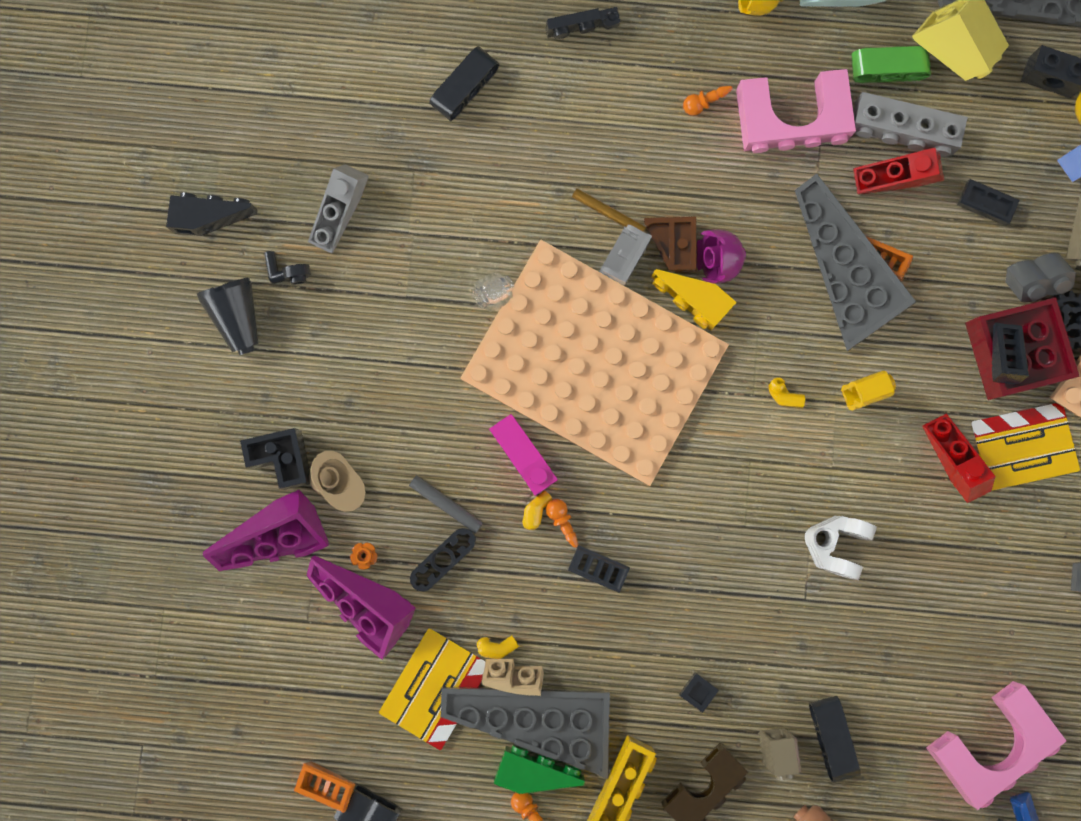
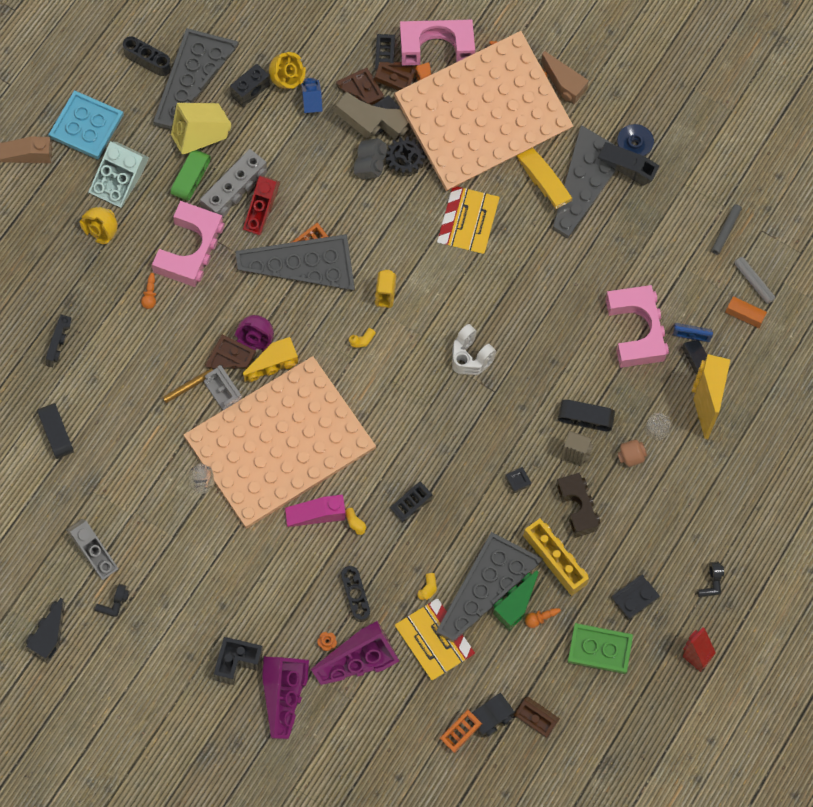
camera: 65 degrees left, 15 degrees down
(233, 313) = (126, 645): black cone -> none
(337, 481) = (270, 632): tan piece -> none
(445, 504) = (321, 575): dark grey piece -> none
(507, 677) = (448, 590): tan slope -> none
(557, 511) = (362, 508): orange bar -> none
(959, 459) = (457, 259): red slope -> none
(988, 202) = (308, 164): black plate -> none
(1009, 371) = (414, 207): black slope -> none
(1046, 346) = (407, 191): dark red slope -> none

